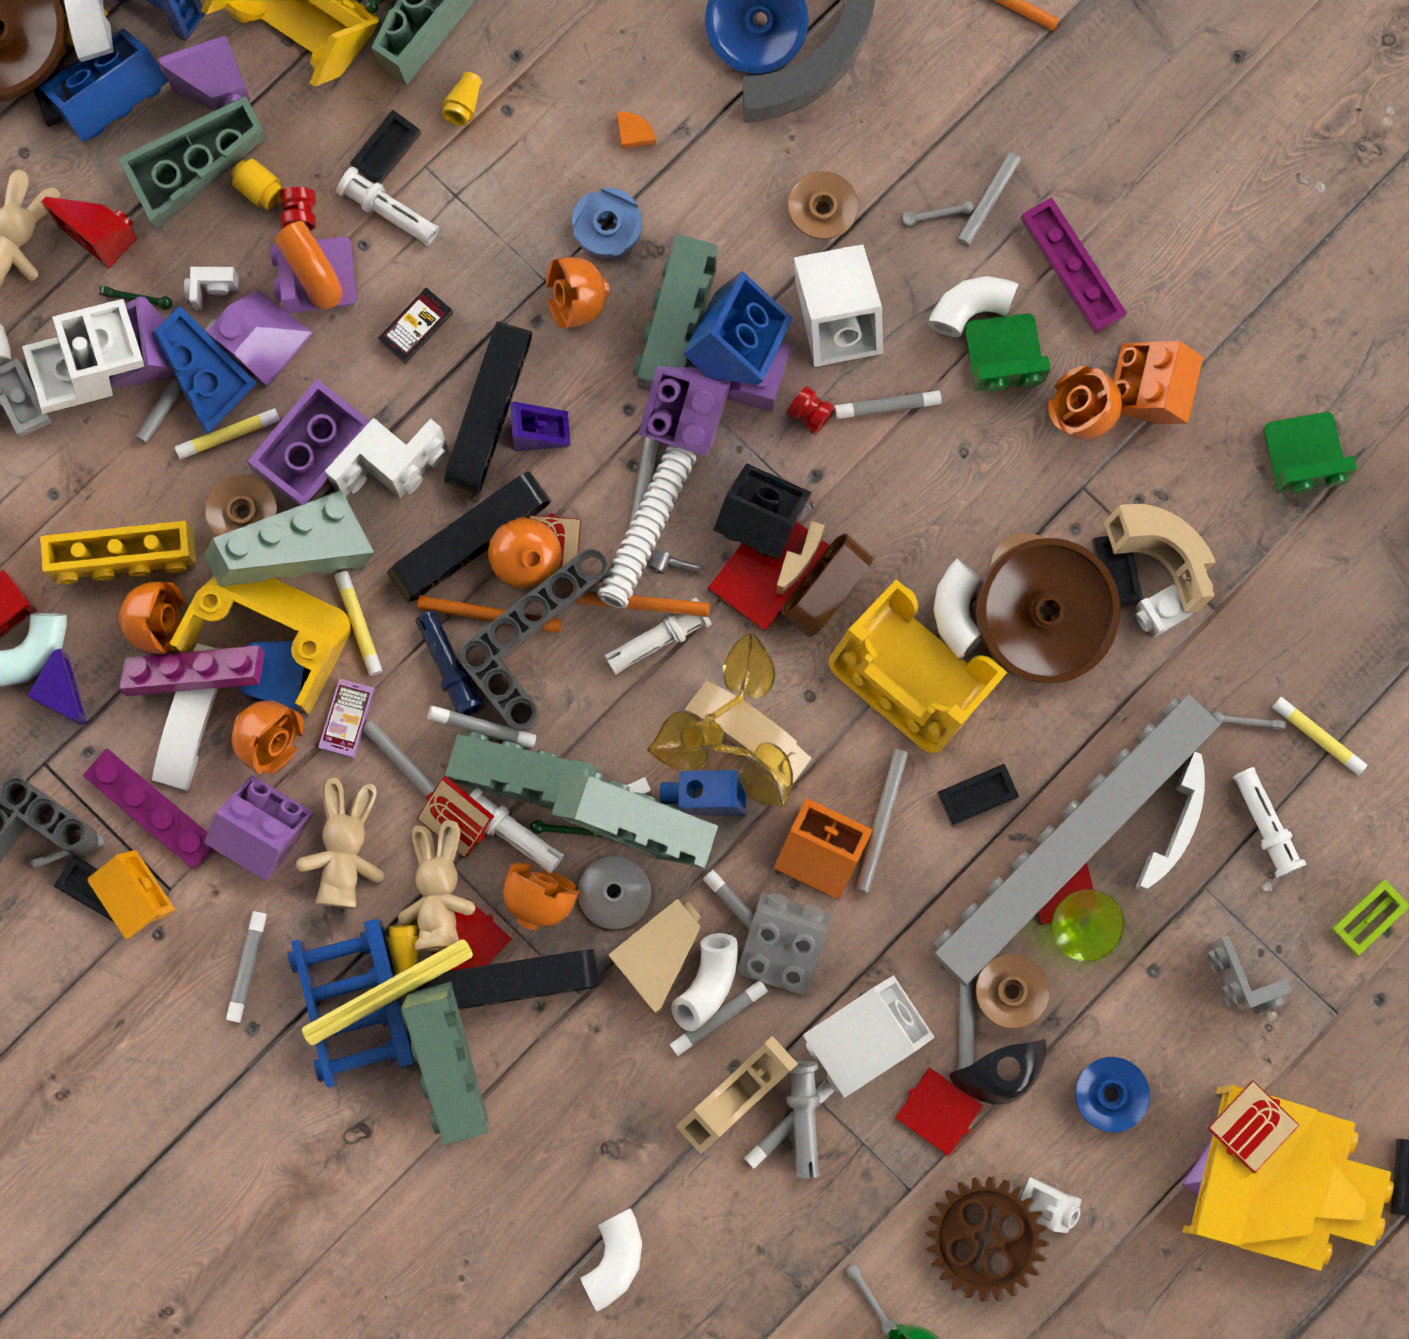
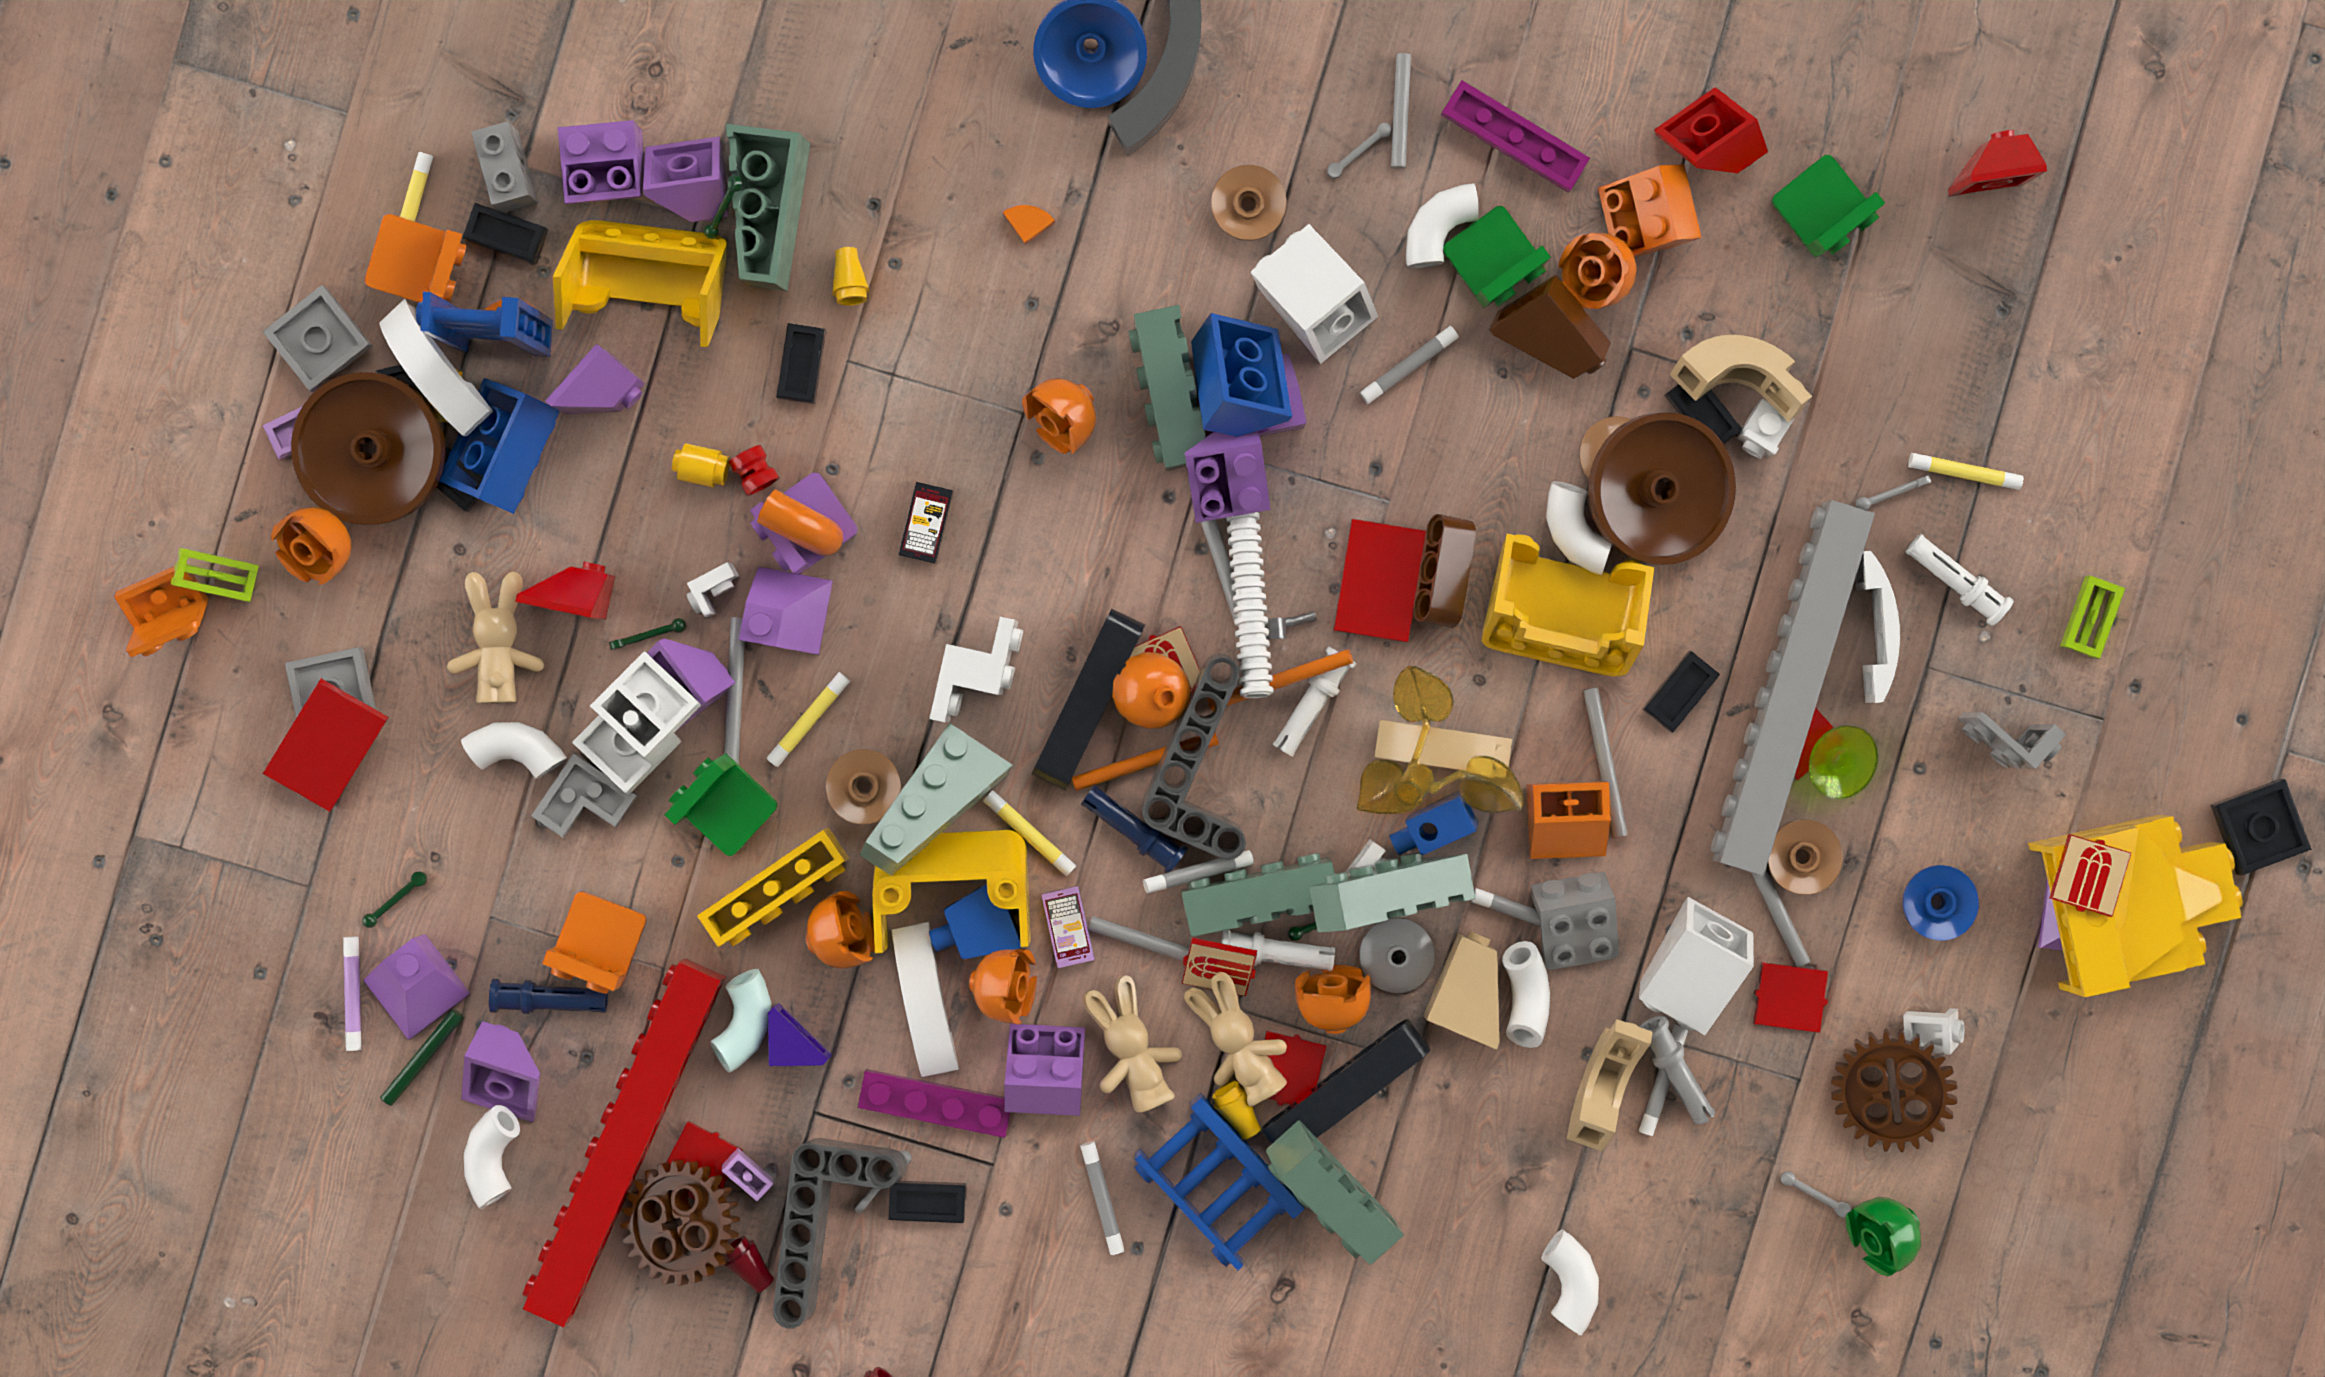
camera: 25 degrees left, 10 degrees up
(115, 460) = (723, 804): none -> green bracket
(130, 893) = (963, 1190): light orange panel -> none
(190, 159) = (622, 482): sand green wedge -> none
(192, 670) = (906, 962): magenta plate -> none
(202, 368) = (754, 674): blue wing -> none
(307, 443) = (896, 694): medium lavender slope -> none
(373, 198) = (819, 421): white pin -> none
(387, 992) = (1248, 1160): light yellow axle -> none
(488, 407) = (1038, 566): black beam -> none
(538, 427) = (1098, 560): dark purple slope -> none
(599, 205) = (1036, 314): medium blue plate -> none
(724, 1014) = (1555, 1012): light grey bar -> none
(761, 511) = (1349, 533): black slope -> none
(796, 564) = (1407, 572): tan slope -> none
(810, 410) = (1341, 410): red wheel -> none
(984, 1083) = (1820, 950): black piece -> none
(1023, 434) = (1553, 329): none -> reddish brown slope
(1243, 348) = (1715, 134): none -> red slope

